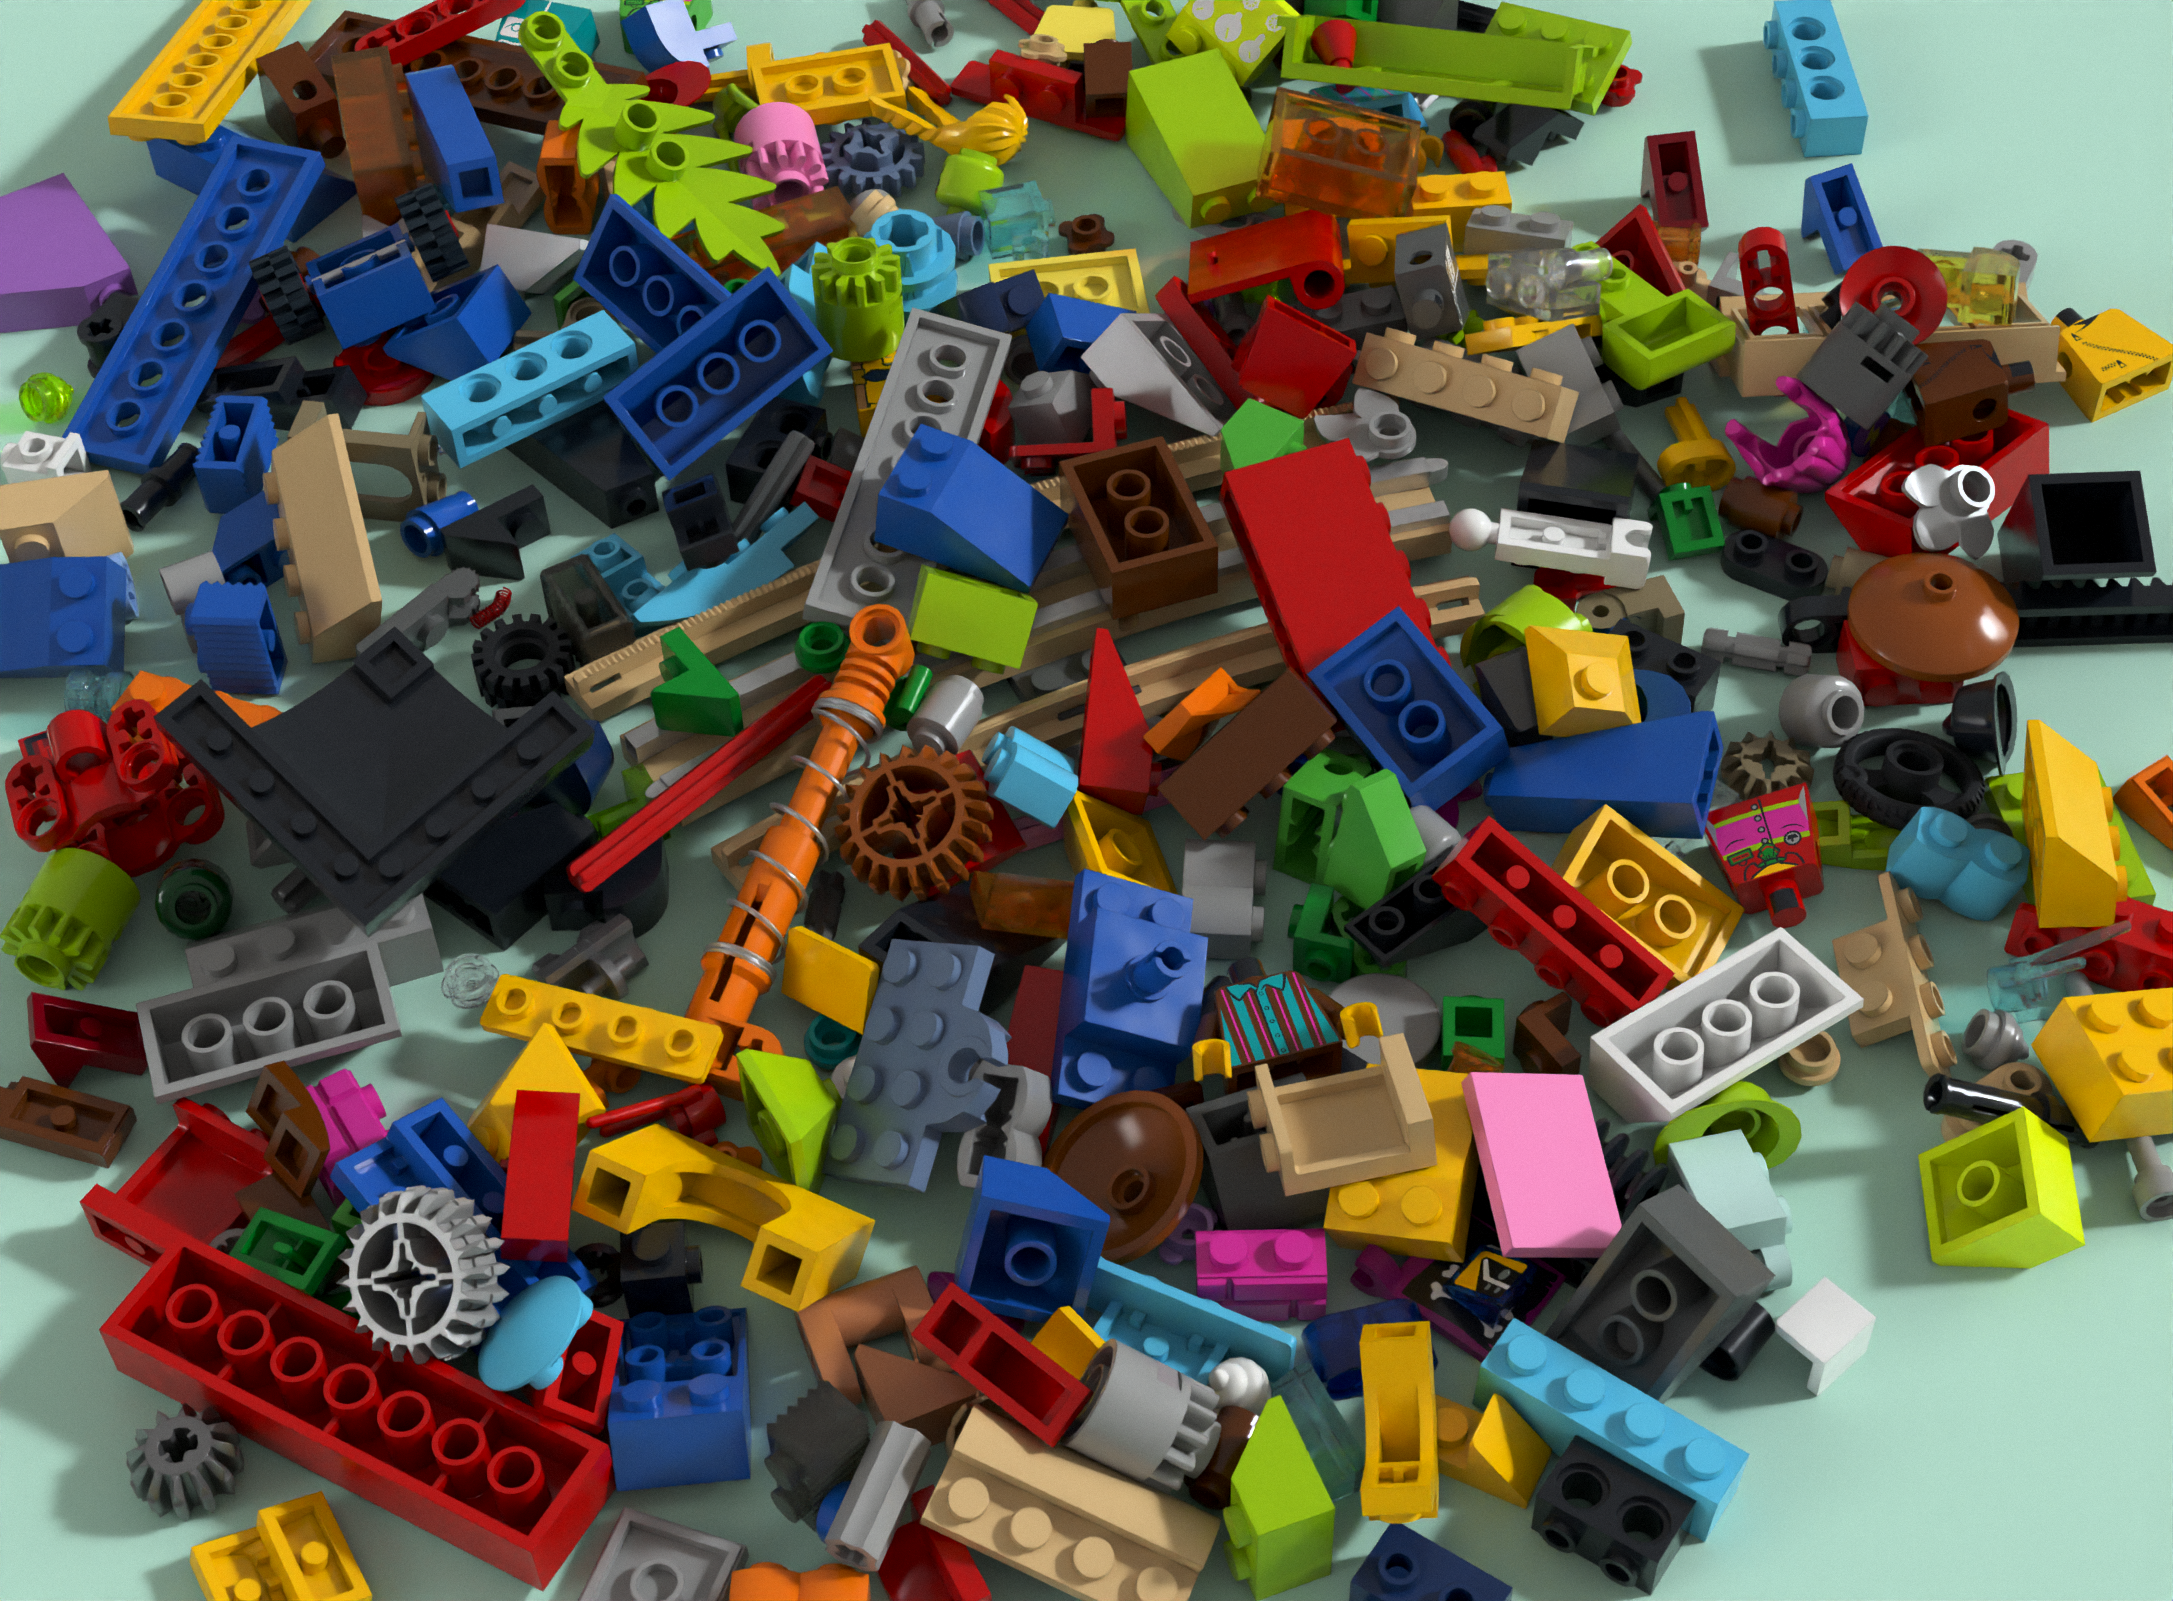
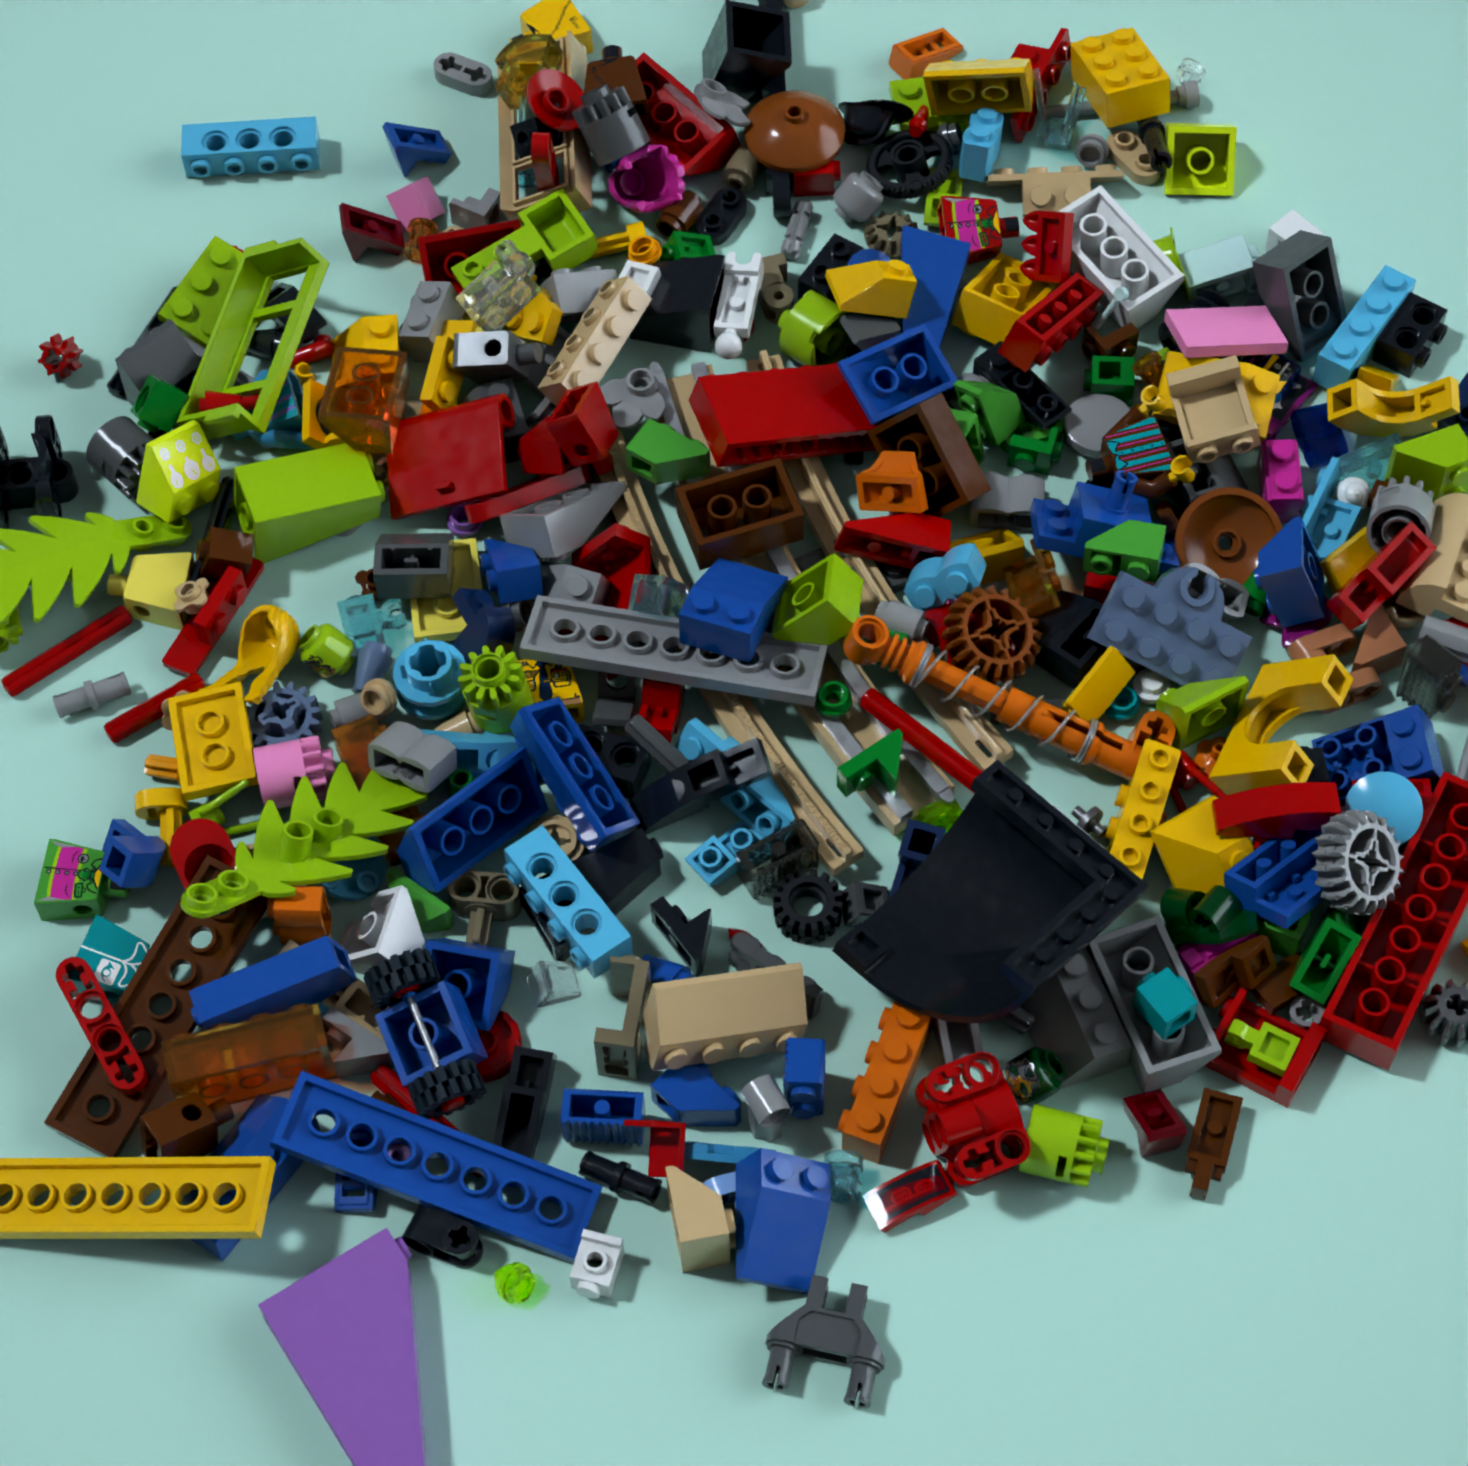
camera: 90 degrees left, 10 degrees up
(156, 547) = (717, 1152): none -> dark azure tile
(175, 1181) = (1268, 1048): none -> lime plate
(180, 488) = (666, 1144): none -> red bracket
(229, 1007) = (1165, 1002): none -> teal brick
(391, 1088) = (1206, 918): none -> dark green panel
(764, 232) = (412, 756): none -> light grey brick
(1015, 446) = (657, 595): none -> clear light blue panel
(1037, 975) = (1130, 548): none -> bright green slope
(1089, 235) = (413, 565): none -> dark grey slope
(1583, 1029) = (1120, 294): none -> light aqua hinge
(1590, 433) = (643, 274): none -> white tile
(1658, 448) = (644, 250): none -> light orange plate
(1731, 226) = (415, 201): none -> bright pink panel
(1740, 924) = (1050, 246): none -> red plate
(1985, 775) = (919, 122): none -> red piece

